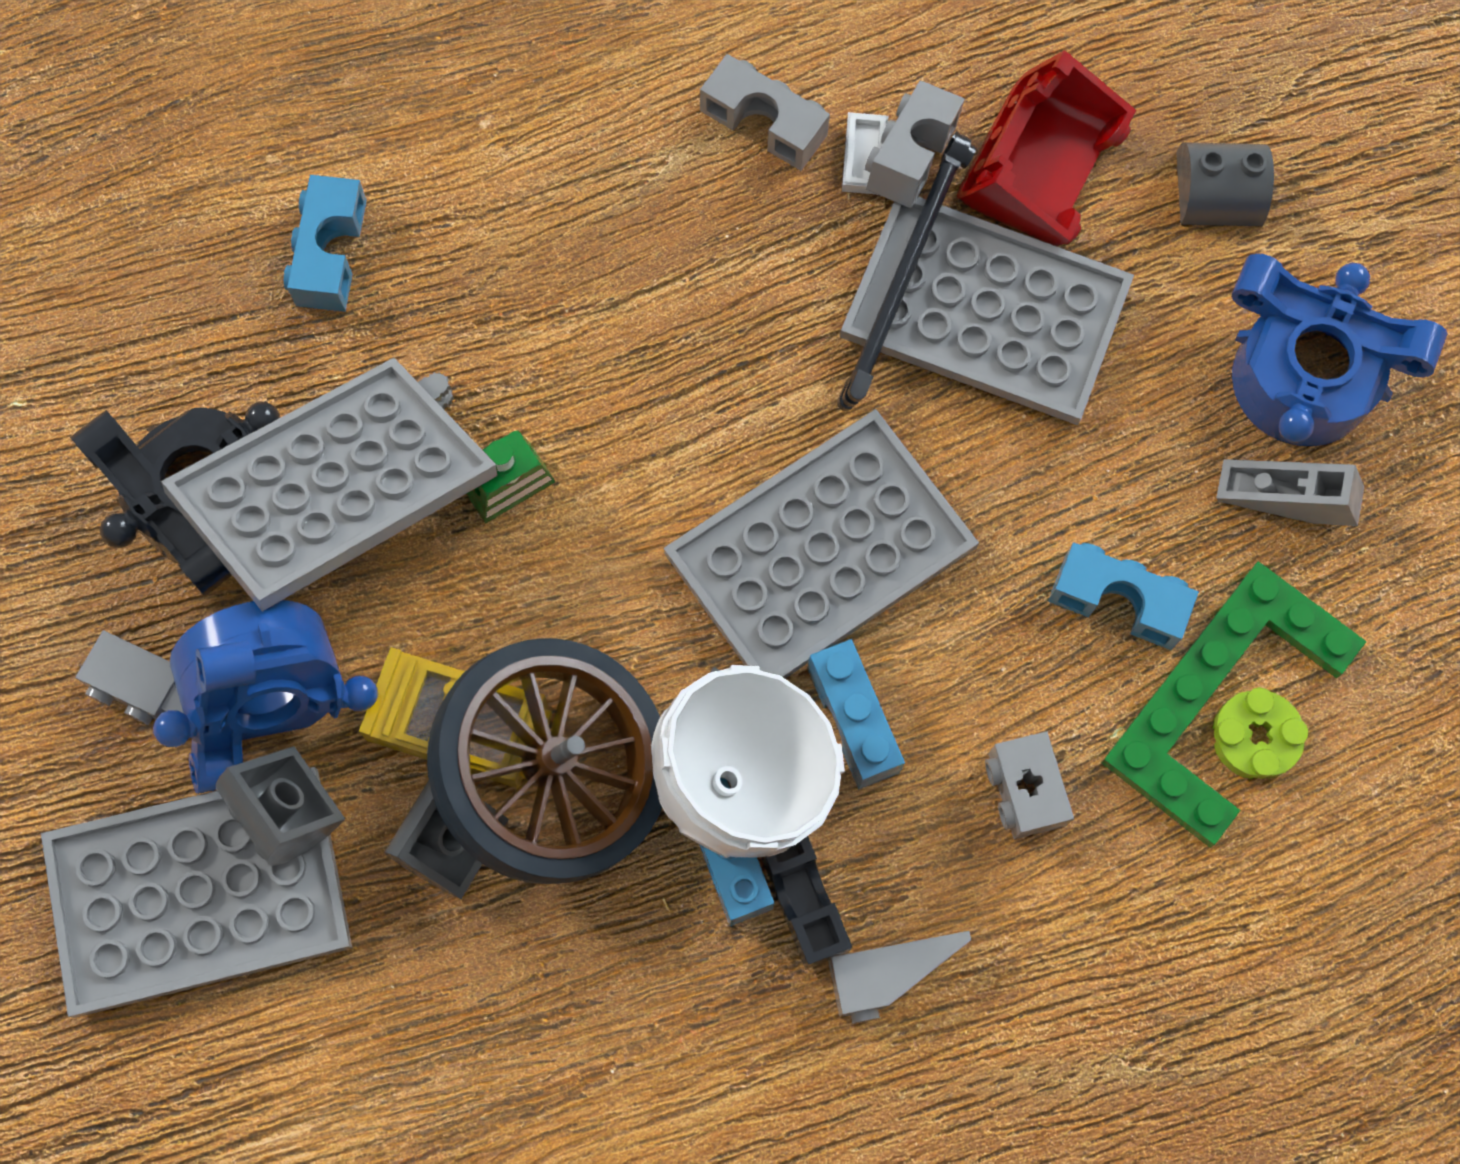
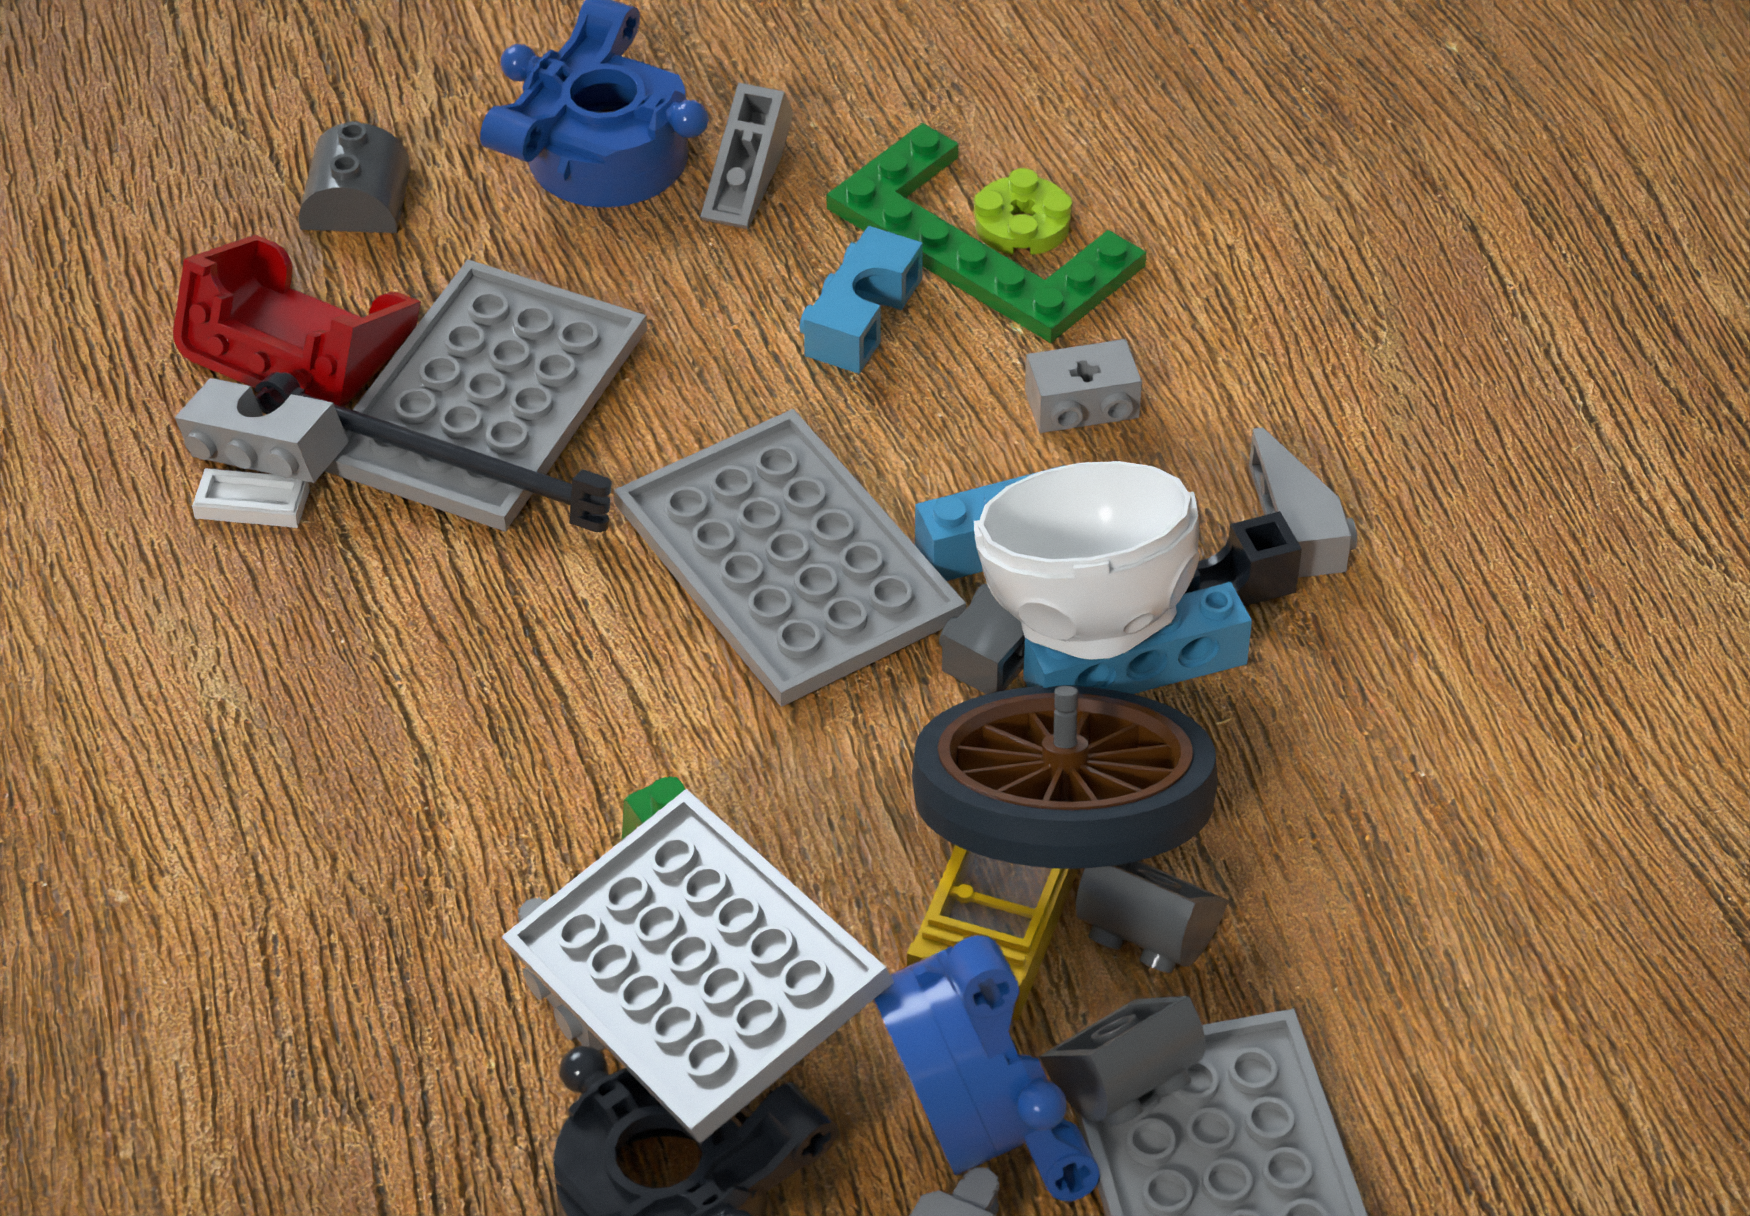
camera: 85 degrees left, 25 degrees down
(328, 210) = (335, 1071): dark azure arch -> none
(740, 91) = (144, 604): light grey arch -> none

